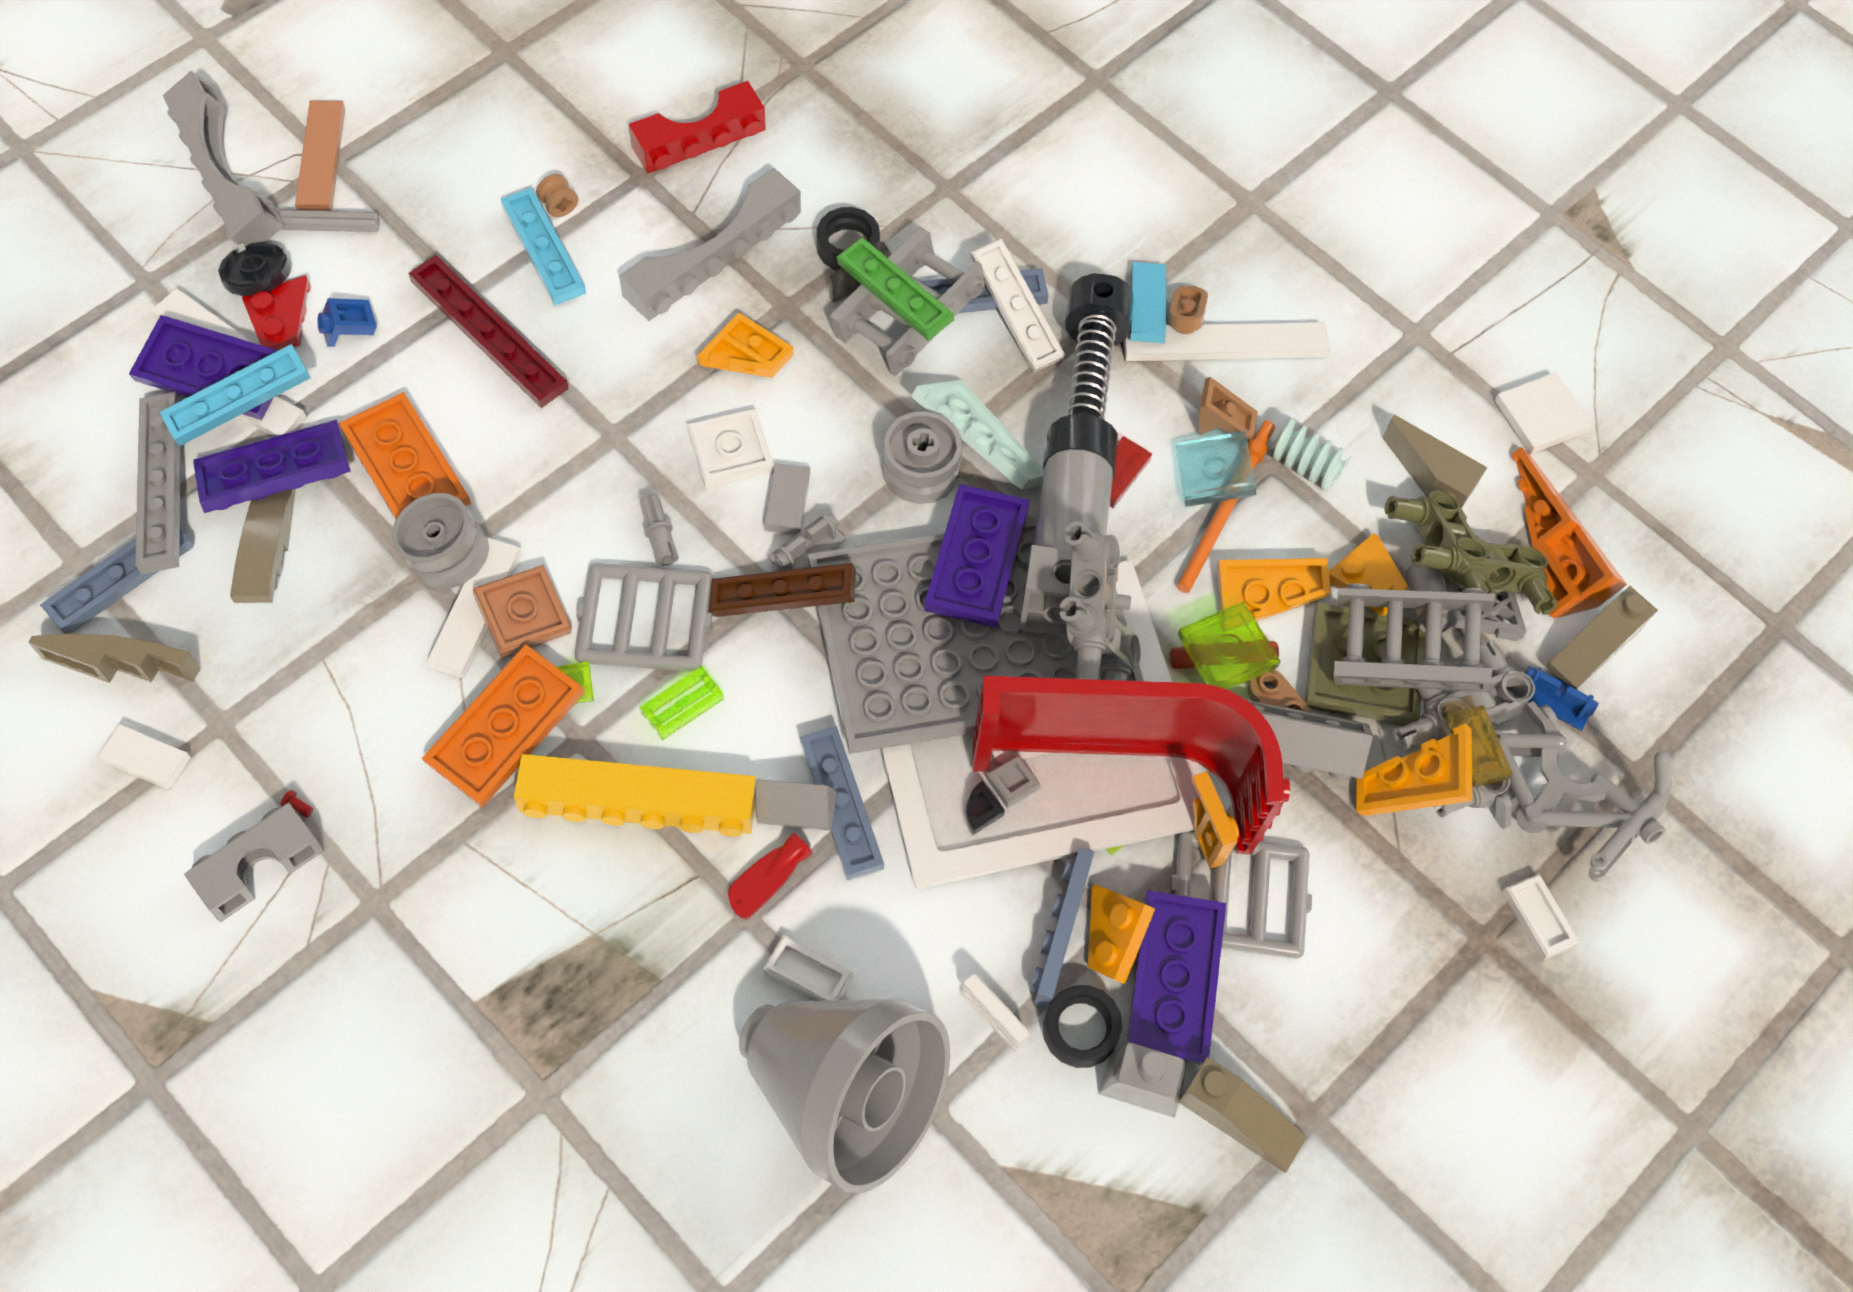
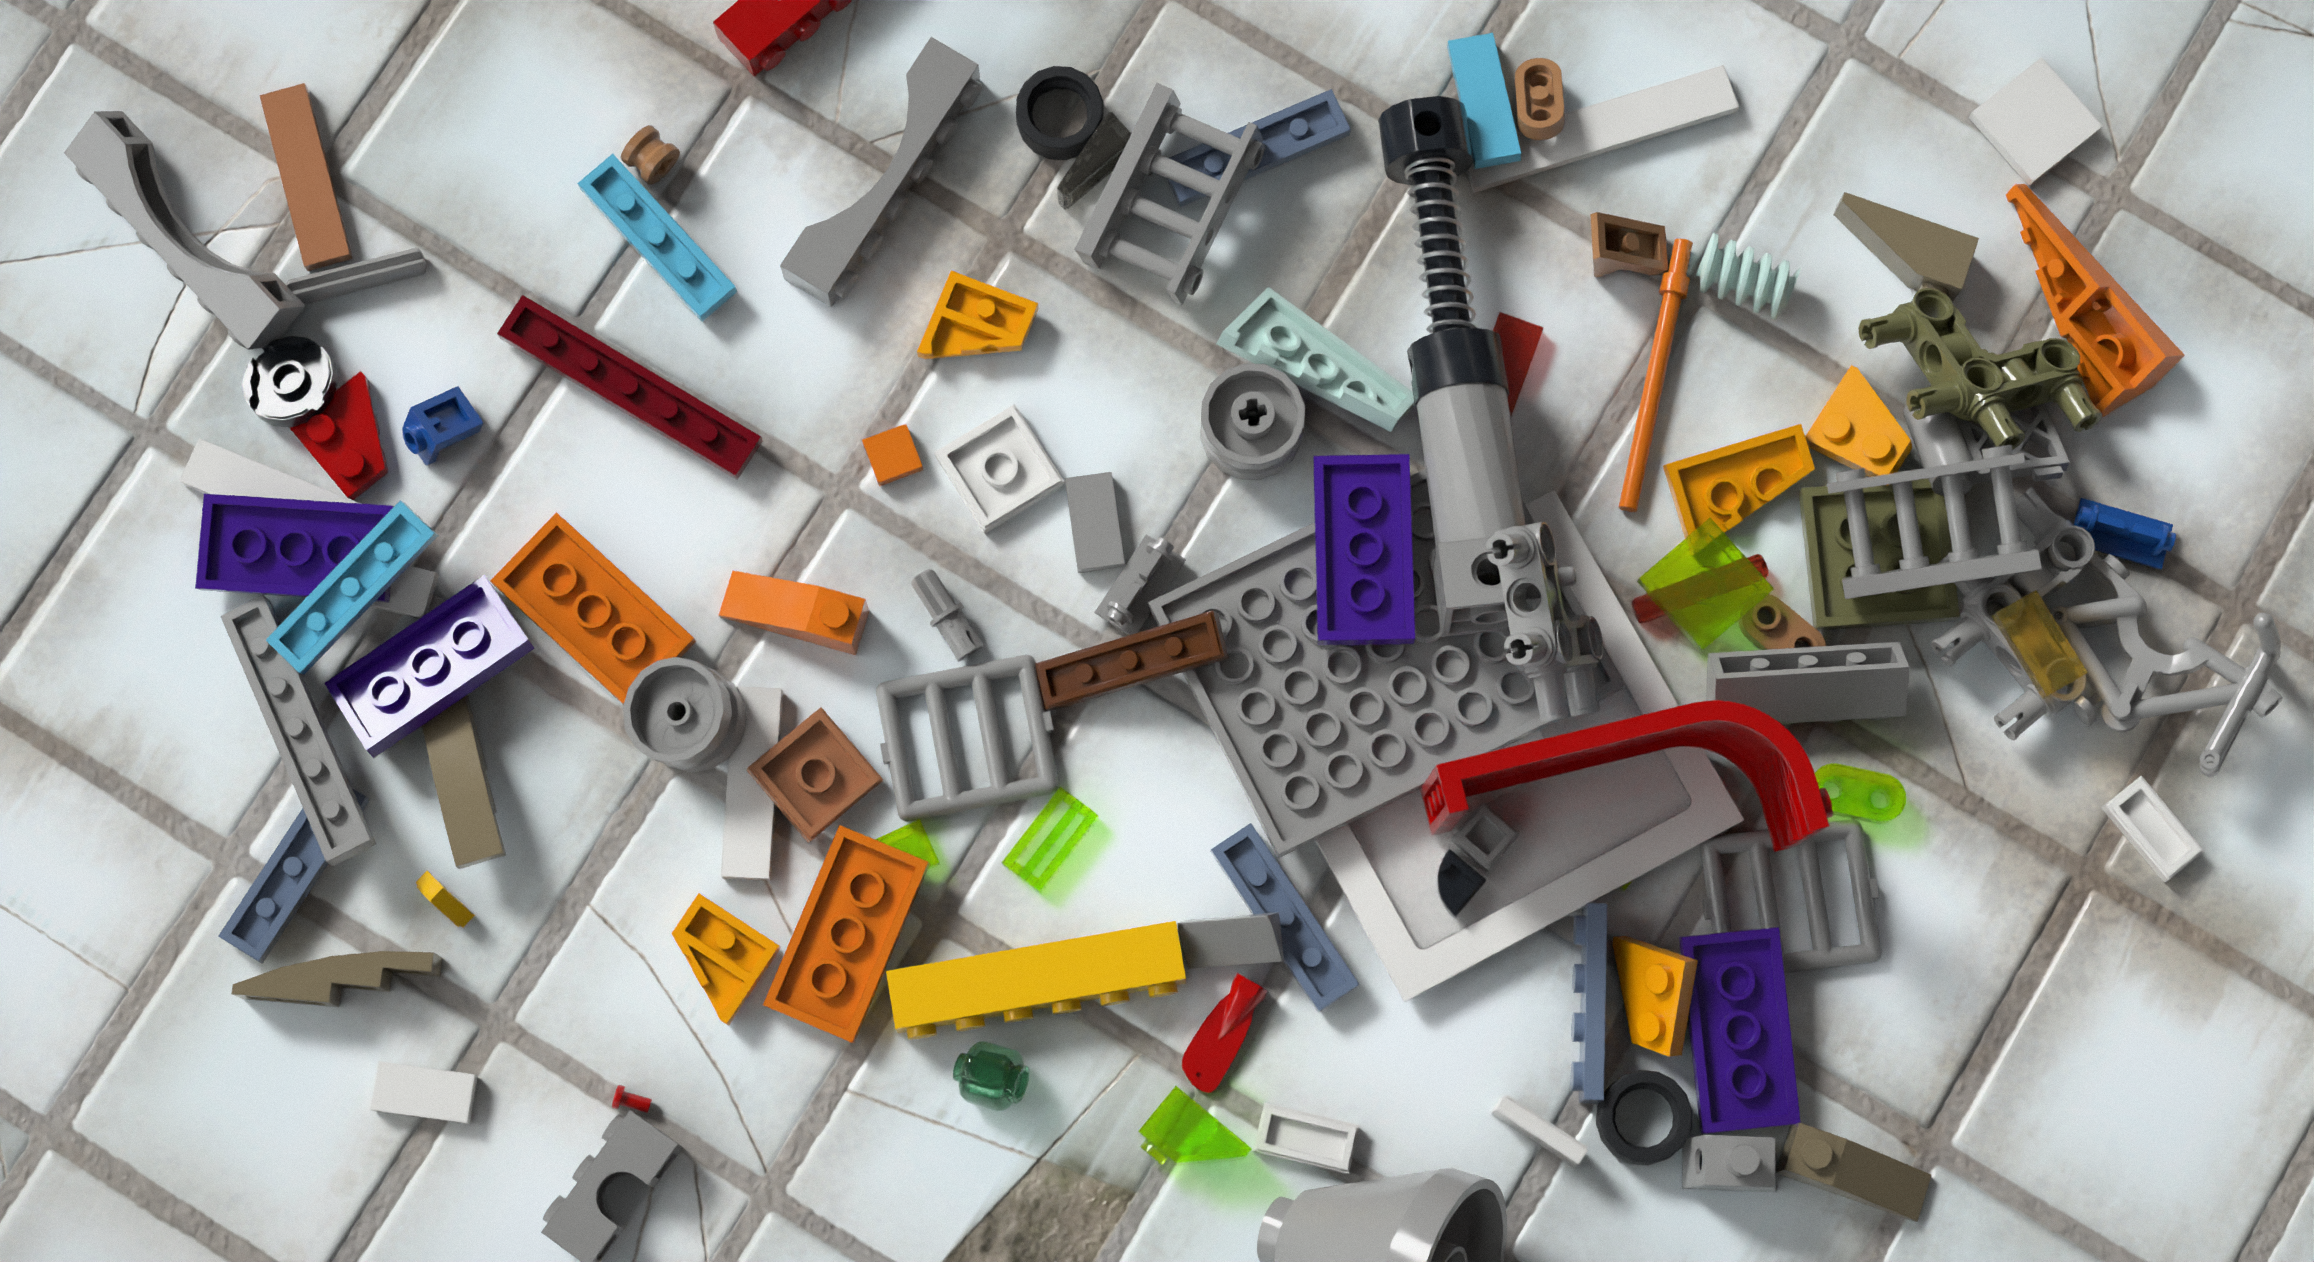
camera: 10 degrees left, 15 degrees up
(216, 626) = (444, 900): none -> yellow tile
(407, 717) = (723, 954): none -> light orange wing
(553, 500) = (796, 610): none -> orange slope
(577, 856) = (991, 1076): none -> clear green head
(657, 419) = (892, 455): none -> orange tile
(716, 941) = (1188, 1134): none -> clear neon green slope
(895, 288) = (1152, 191): bright green tile -> none
(1018, 306) = (1314, 158): white tile -> none
(1212, 826) = (1746, 845): light orange wing -> none
(1215, 468) = (1630, 329): clear light blue tile -> none
(1310, 826) = (1856, 790): none -> clear neon green plate
(1426, 778) = (1980, 702): light orange wing -> none
(1602, 638) = (2165, 440): dark tan slope -> none

